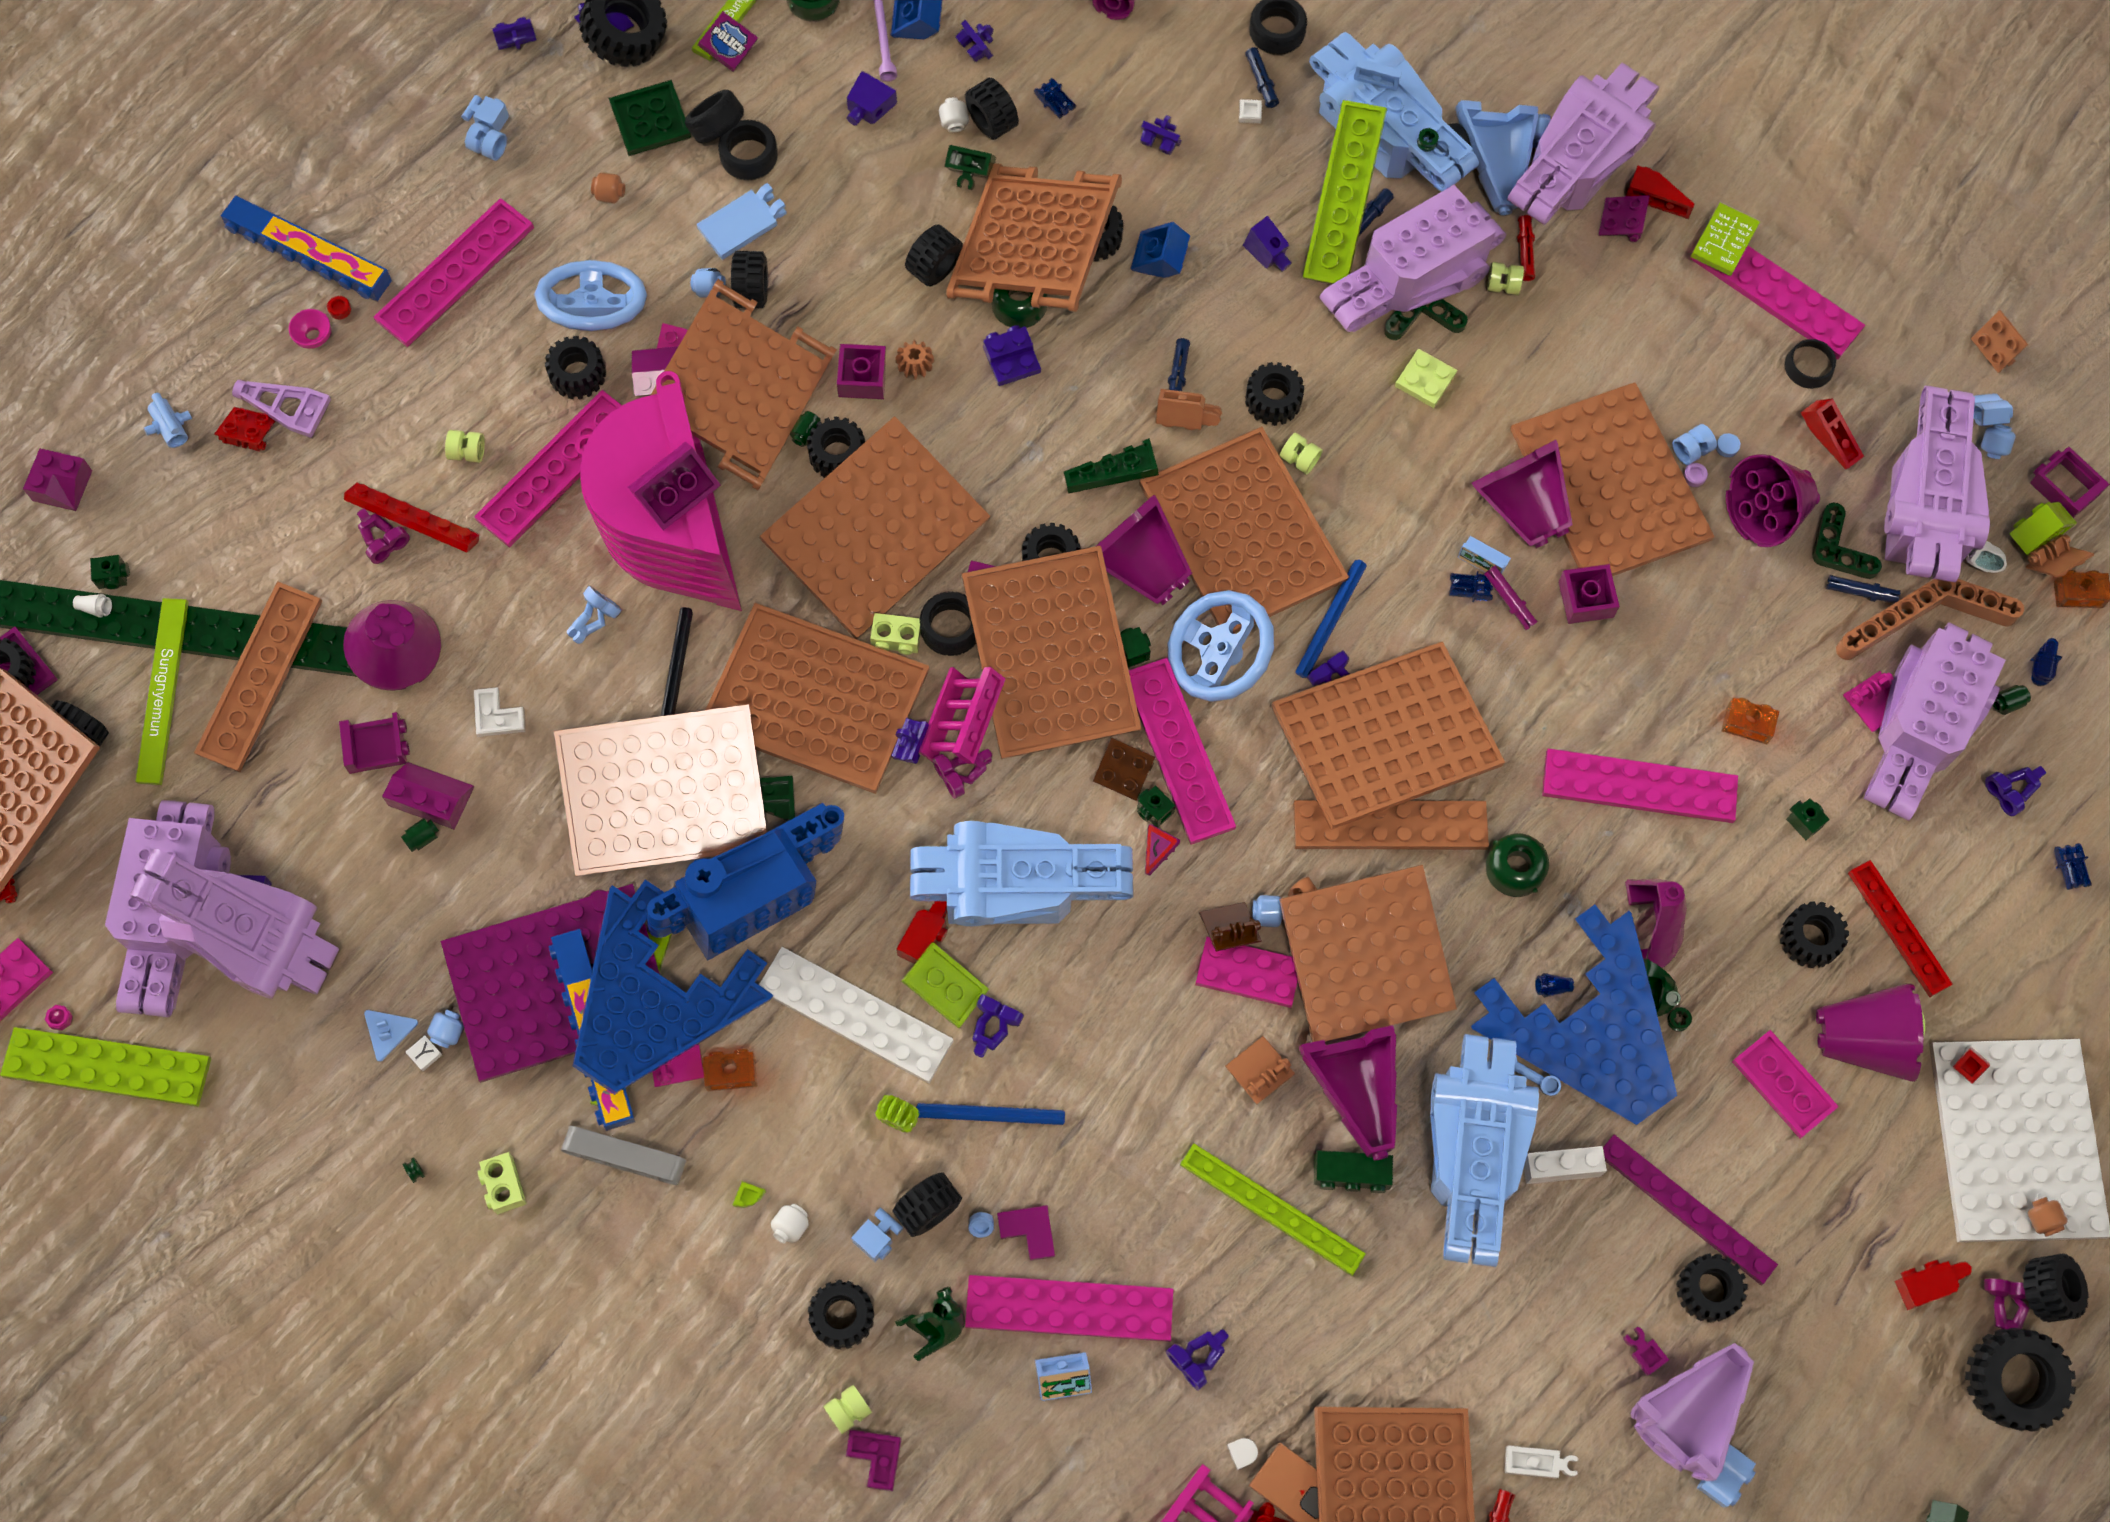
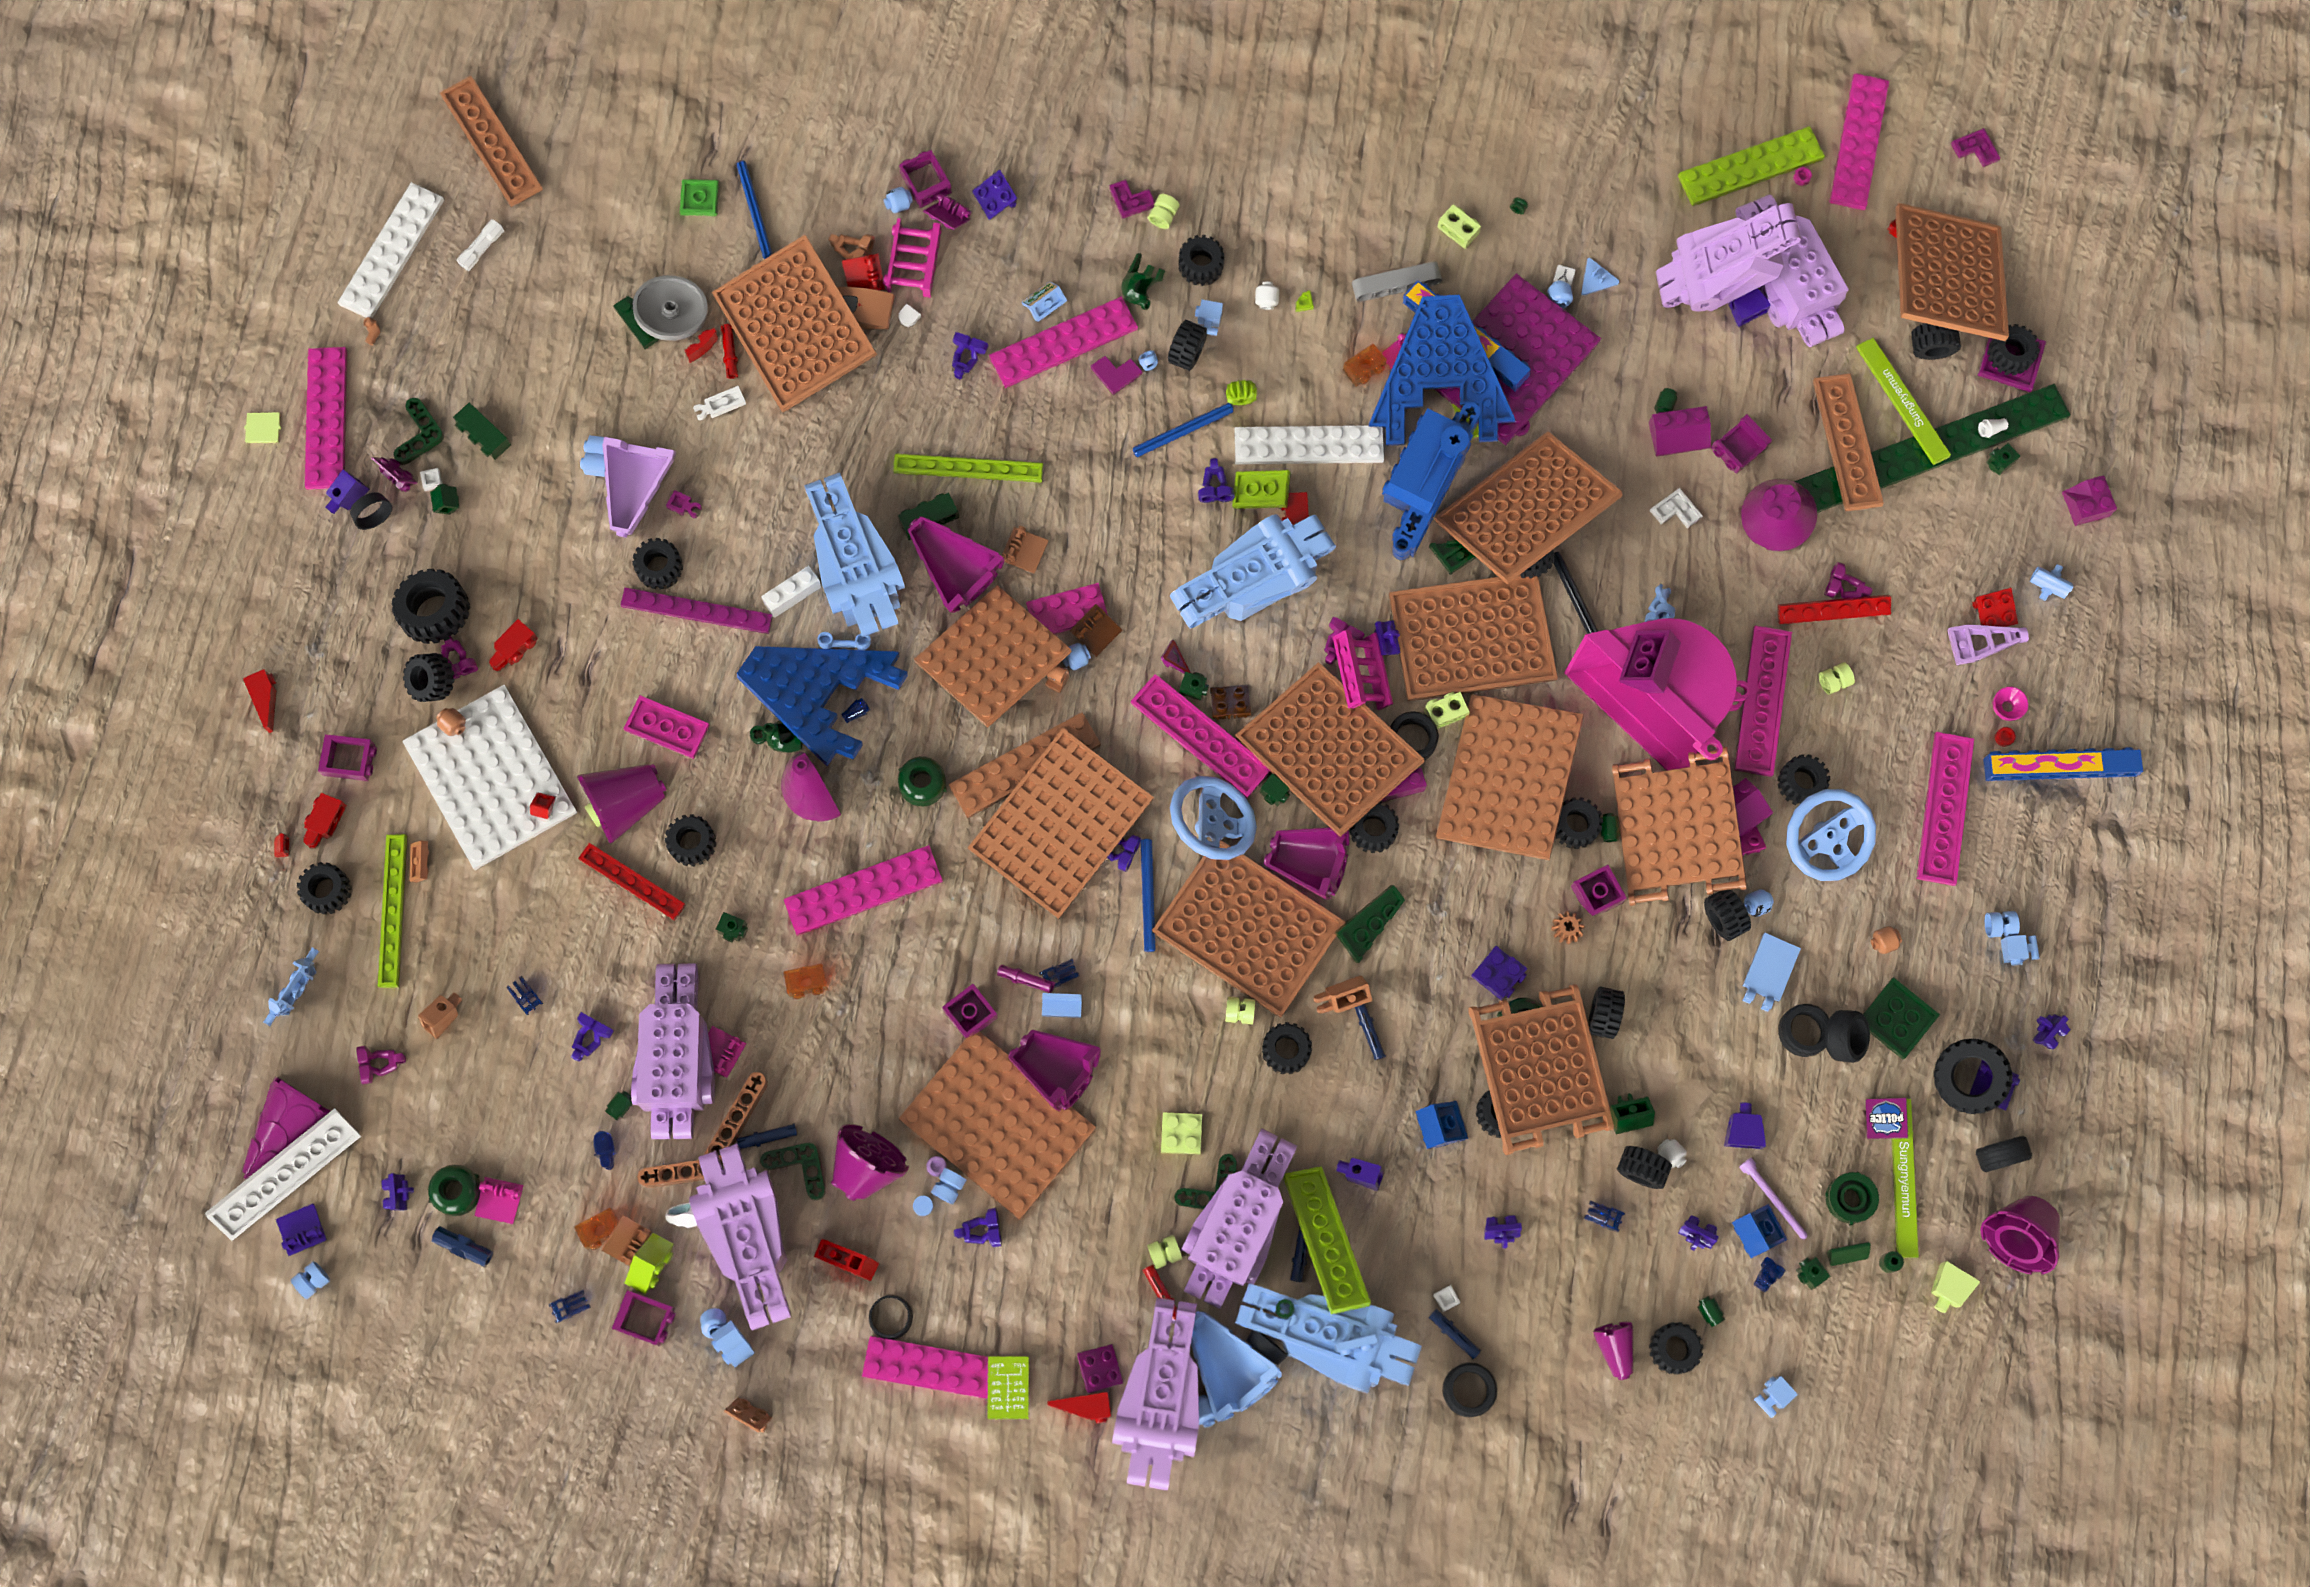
camera: 150 degrees right, 5 degrees up
(1666, 391) = (993, 1234): none -> dark purple piece

